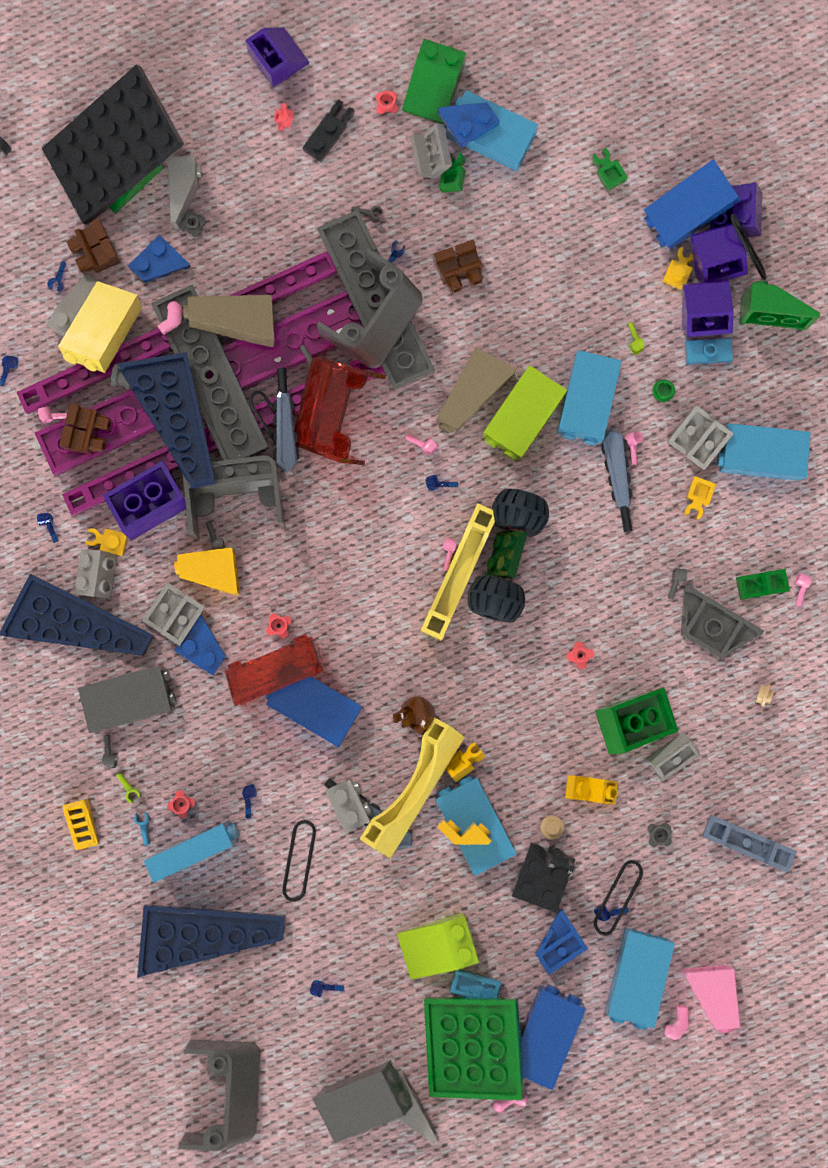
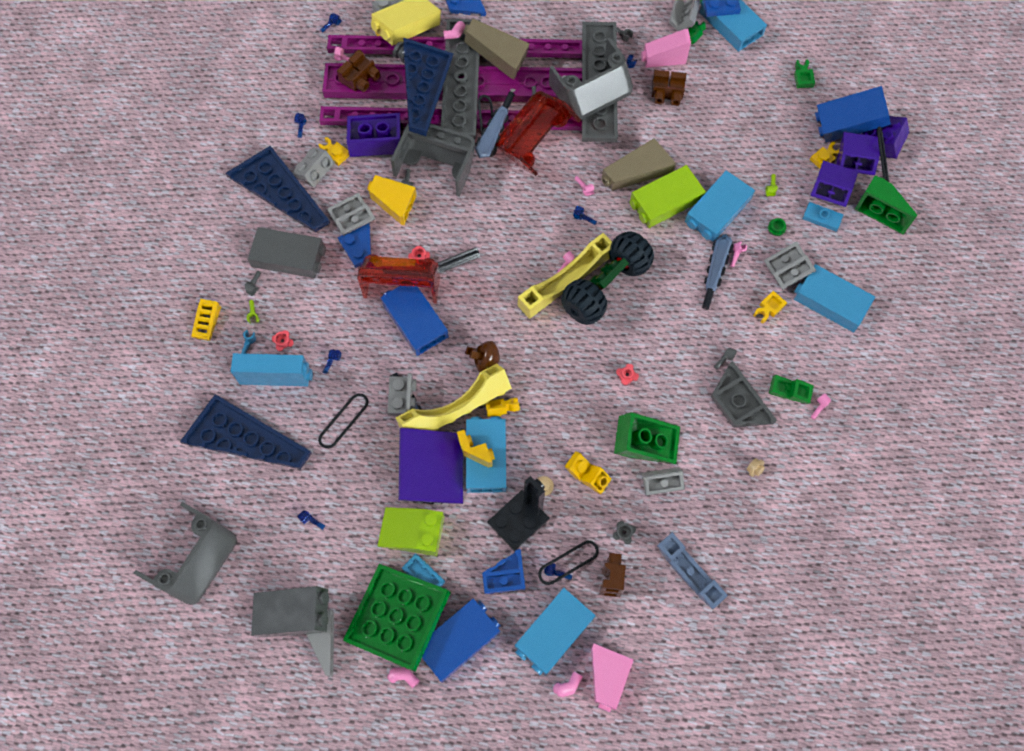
camera: 25 degrees right, 15 degrees down
(323, 611) = (458, 259): none -> axle
(424, 872) = (430, 467): none -> dark purple piece
(435, 217) = (667, 50): none -> bright pink slope
(676, 893) = (615, 576): none -> reddish brown hips

